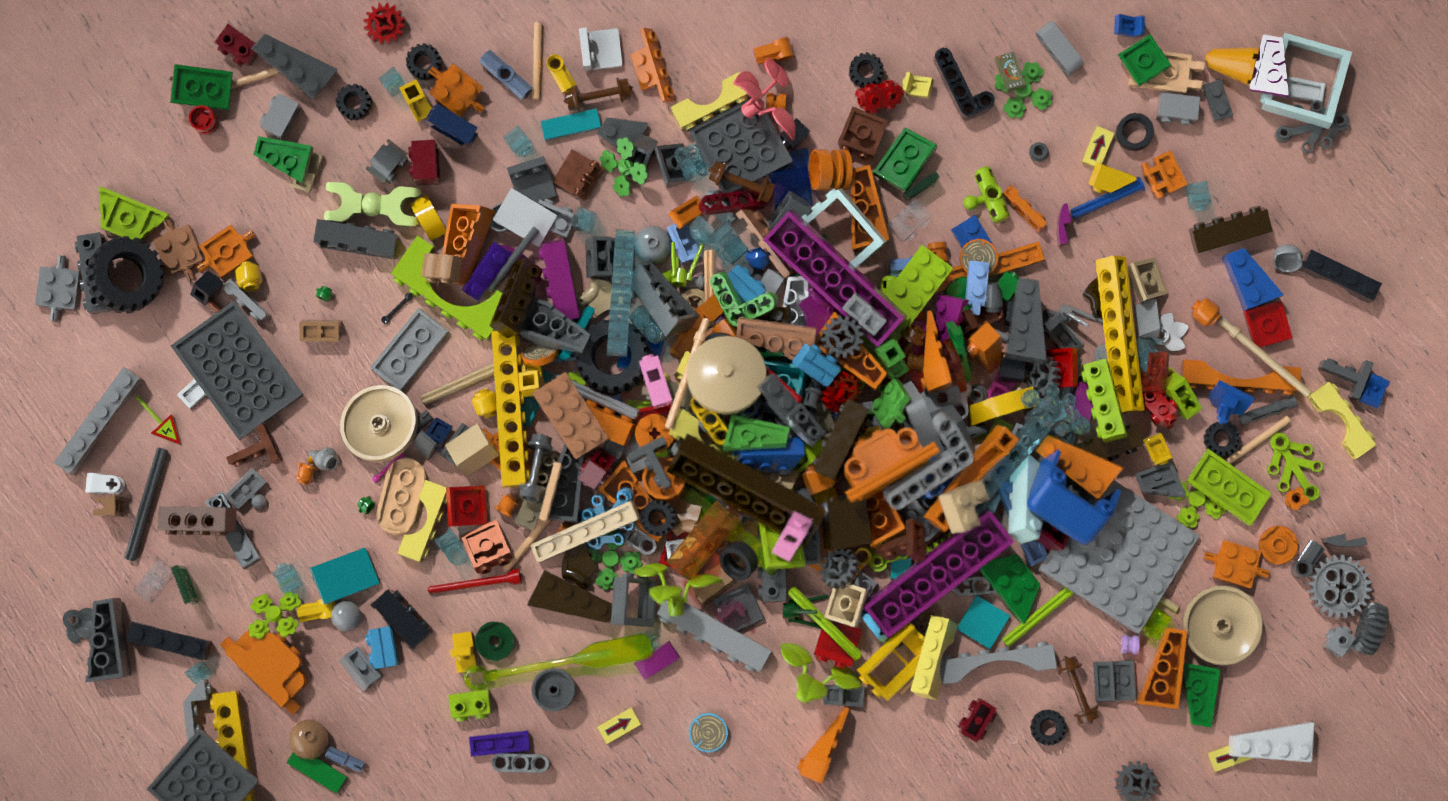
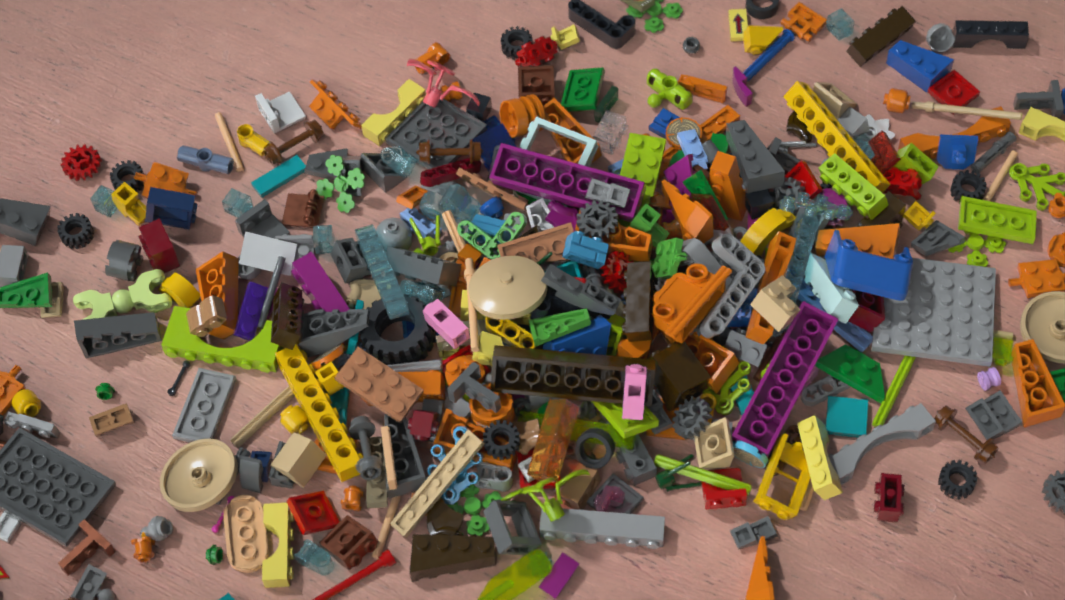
camera: 20 degrees left, 25 degrees down
(809, 687) = (716, 536): lime plant -> none
(911, 544) = (740, 369): copper bracket -> none

